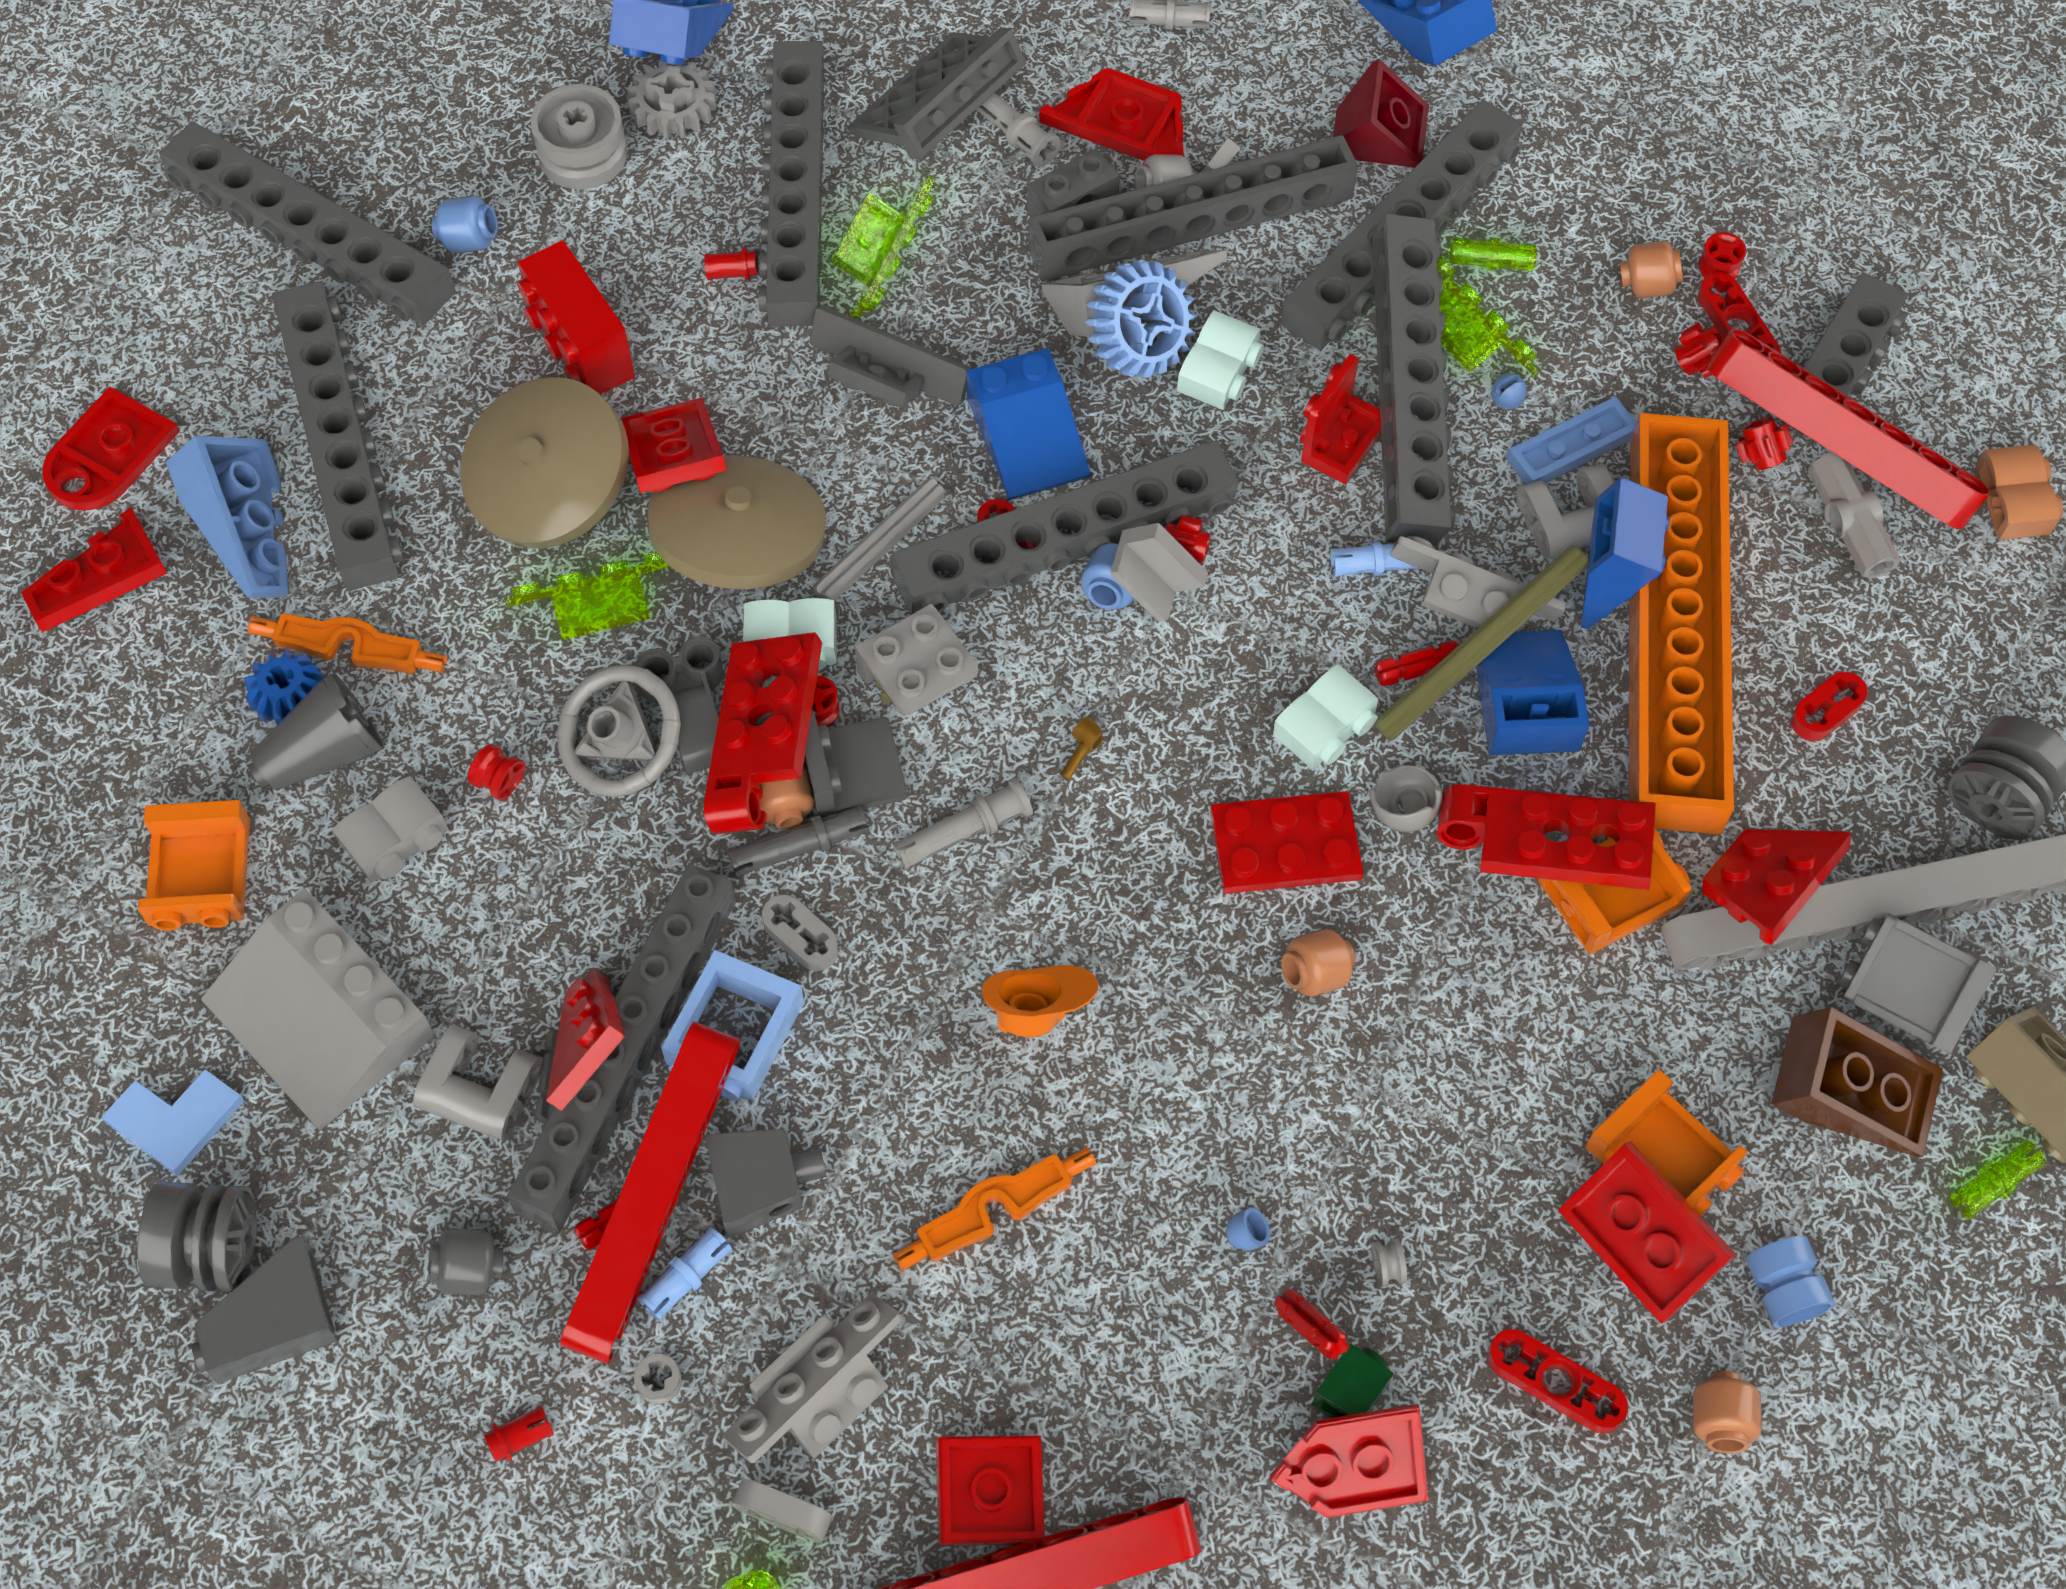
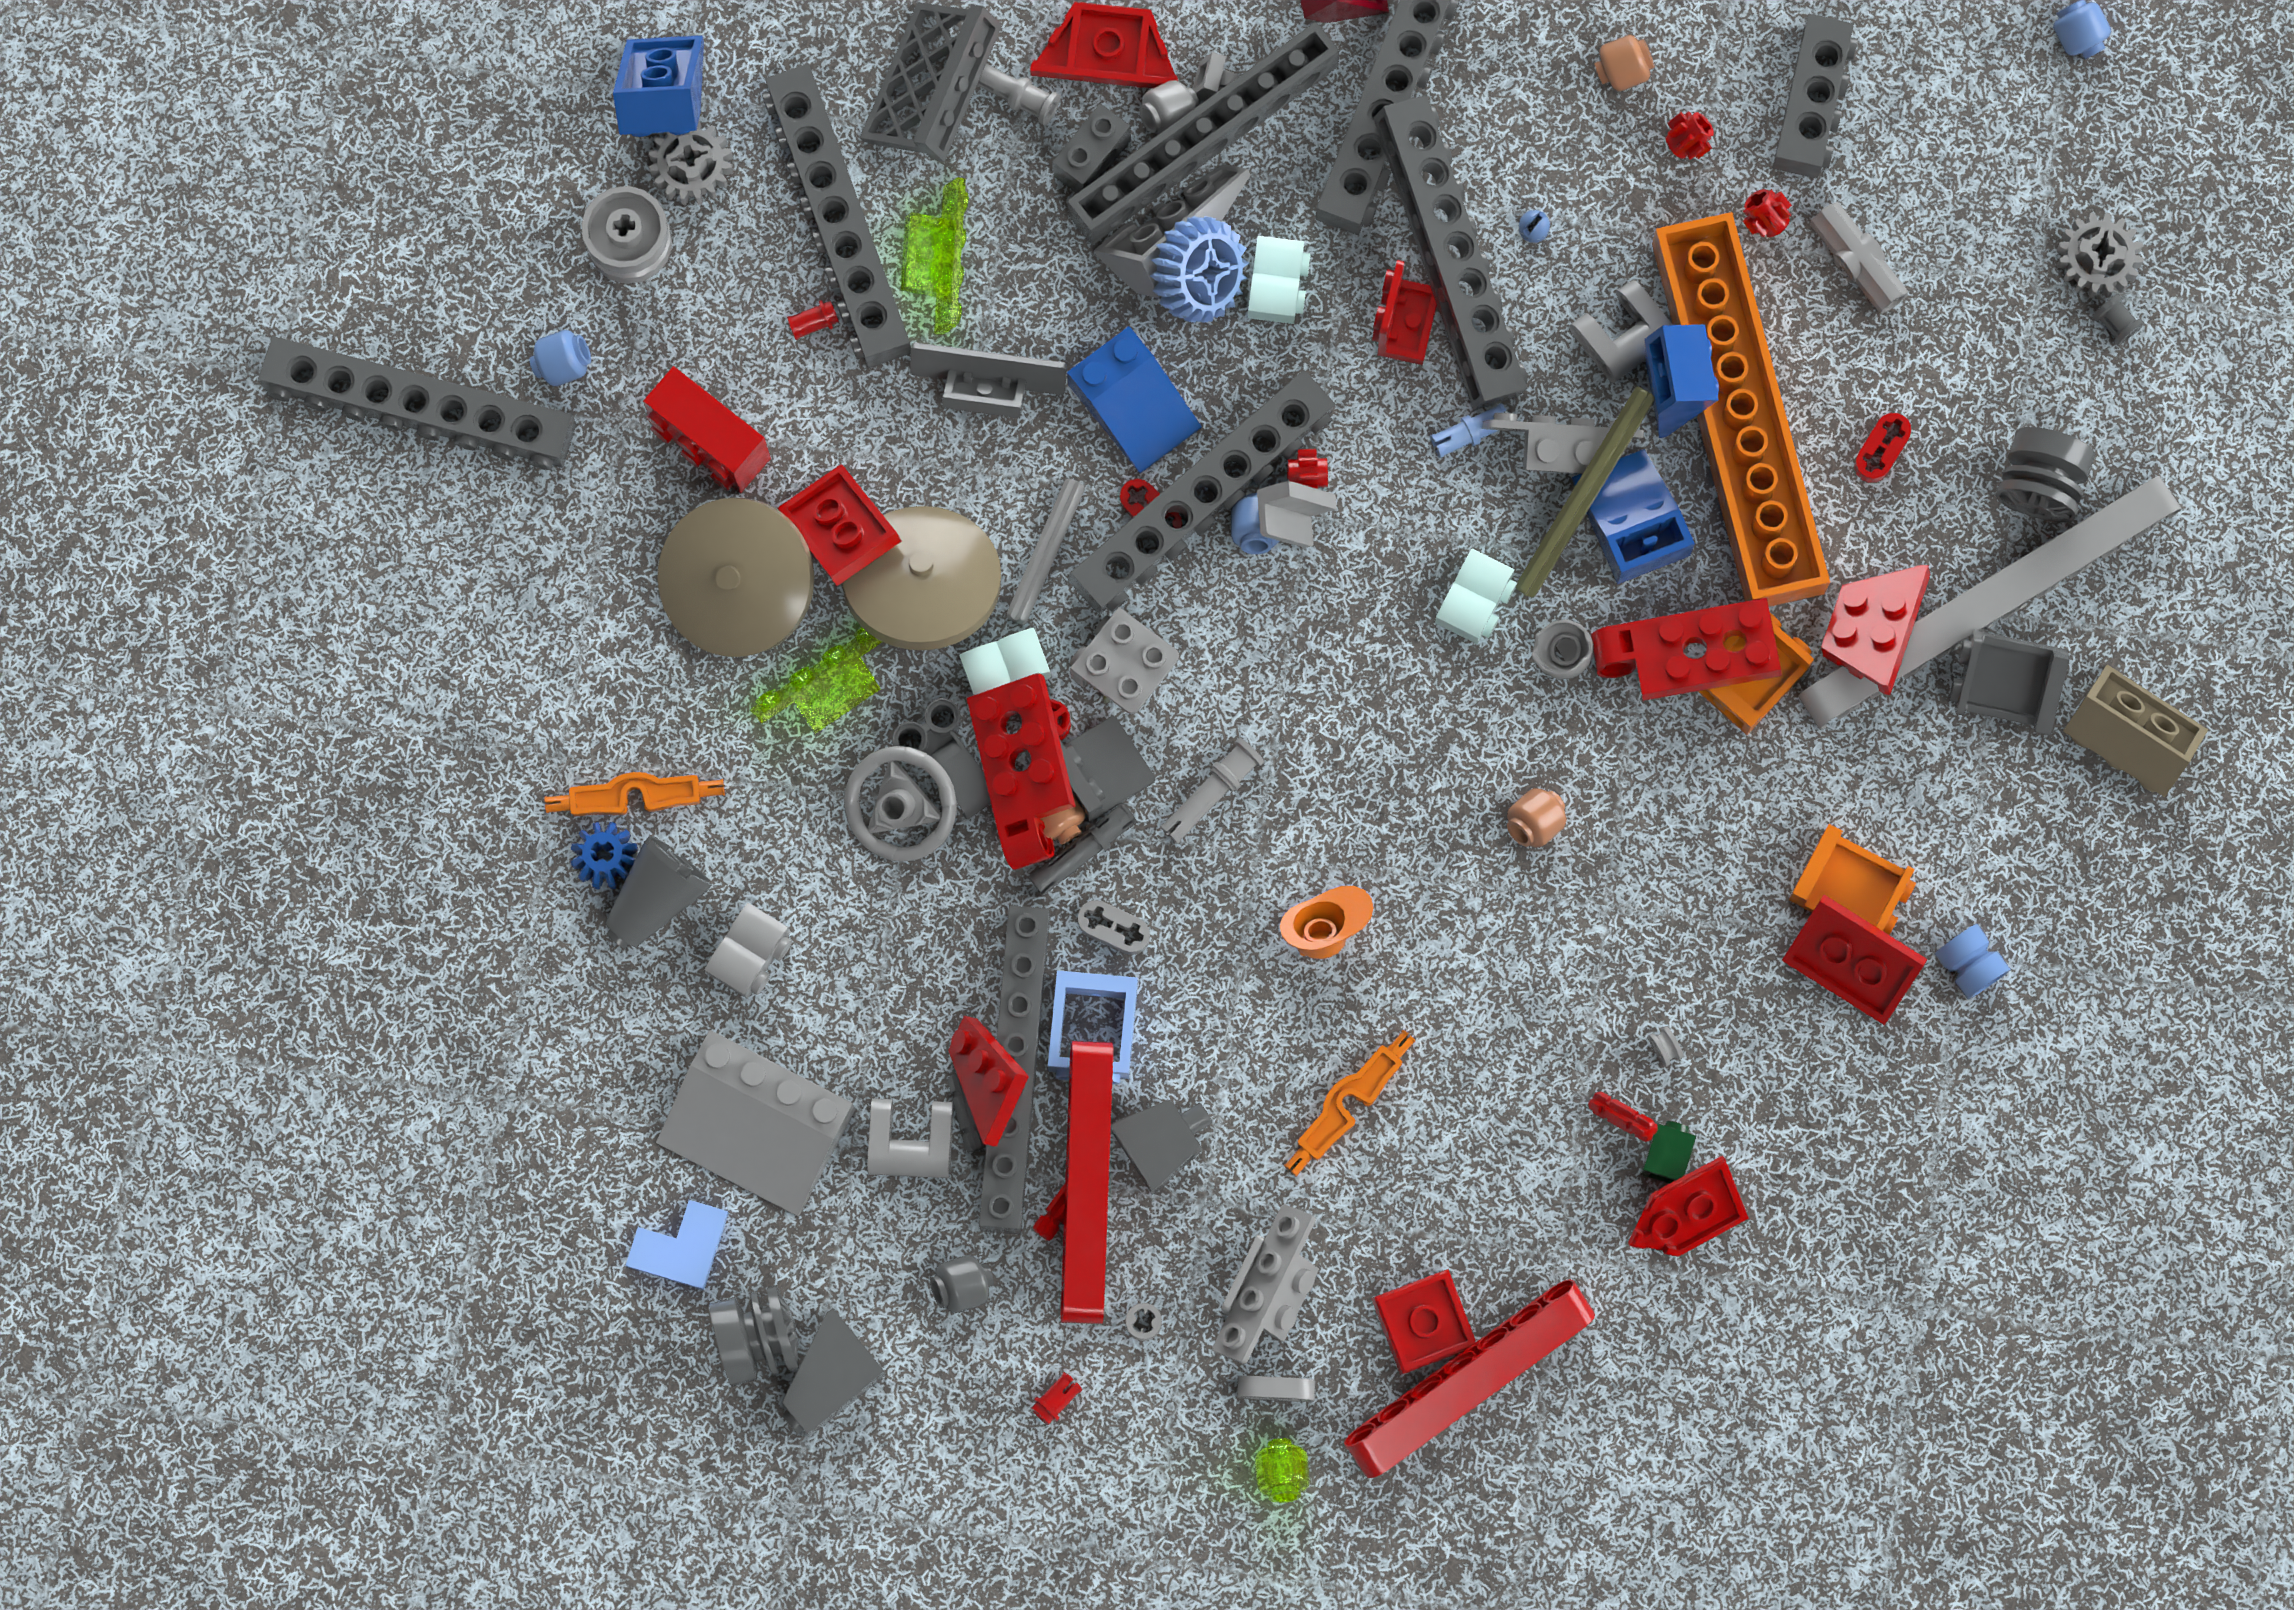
camera: 15 degrees left, 15 degrees up
(101, 573) = (397, 800): red wing -> none
(107, 450) = (343, 680): red tile -> none
(196, 864) = (602, 1034): orange panel -> none
(229, 497) = (475, 698): medium blue wedge -> none
(336, 437) = (452, 498): dark grey brick -> none
(496, 772) = (812, 872): red wheel -> none
(684, 1273) = (1132, 1234): light blue pin -> none
(1090, 737) = (1285, 676): pearl gold hand -> none
(1248, 1230) = (1550, 1056): medium blue hinge -> none
(1286, 842) = (1476, 717): red plate -> none
(1412, 664) = (1533, 519): red axle -> none
(1469, 331) = (1485, 175): clear neon green bracket -> none
(1492, 254) = (1480, 89): clear neon green pin -> none
(1572, 442) = (1604, 263): medium blue plate -> none
(1577, 1374) = (1850, 1093): red beam -> none
(1719, 248) = (1685, 21): red wheel -> none
(1726, 1412) = (1951, 1080): nougat head -> none
(1737, 307) = (1739, 106): red beam -> none
(1848, 429) = (1833, 183): beam -> none
(1856, 1082) = (1984, 779): reddish brown slope -> none
(1997, 1179) = (2110, 822): clear neon green pin -> none
(2020, 491) = (1992, 189): nougat brick -> none

